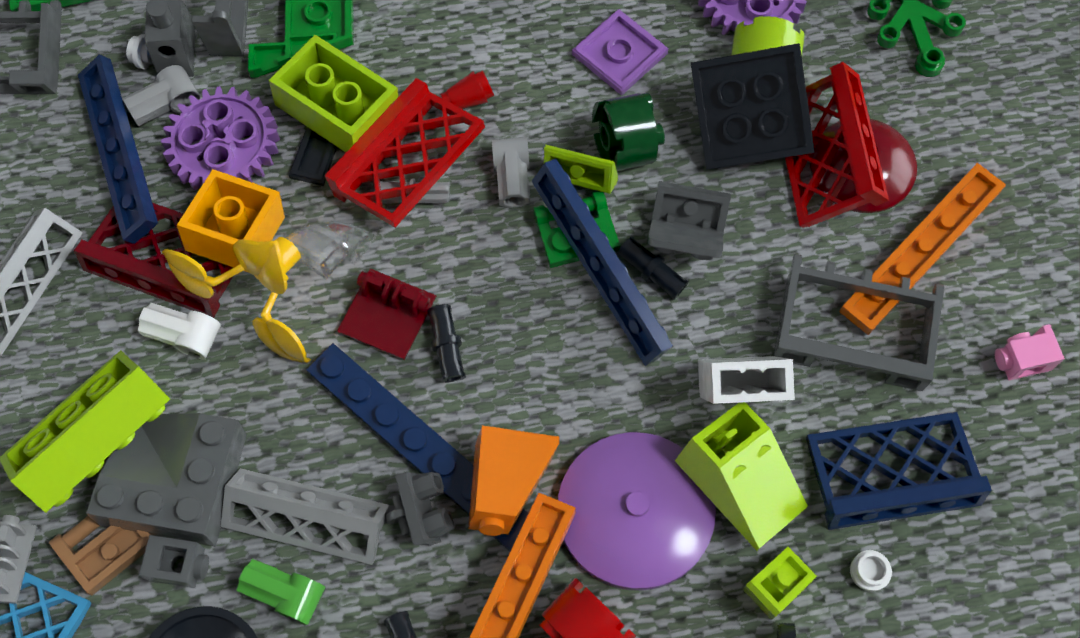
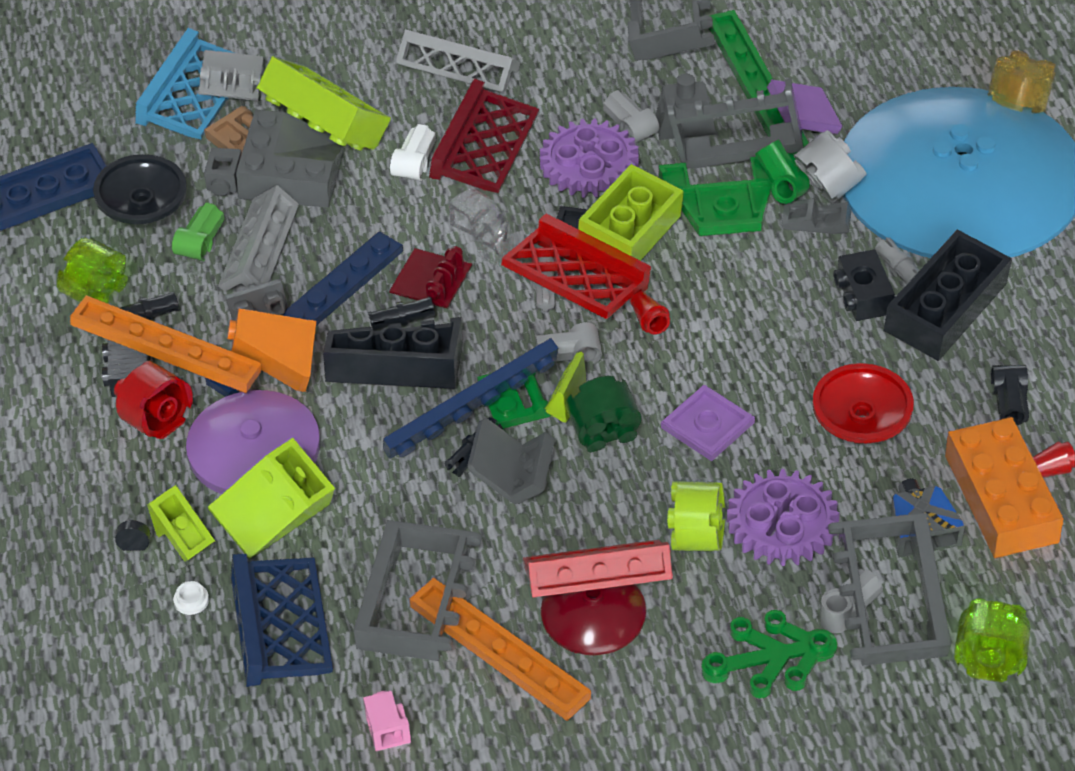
camera: 90 degrees right, 20 degrees down
(117, 150) = (563, 98): dark blue plate -> none
(227, 212) = (501, 162): light orange brick -> none
(268, 263) = (450, 177): yellow plant -> none
(523, 335) = (396, 355): none -> black wedge
(746, 379) = (352, 487): white brick -> none
(753, 106) = (628, 495): black plate -> none

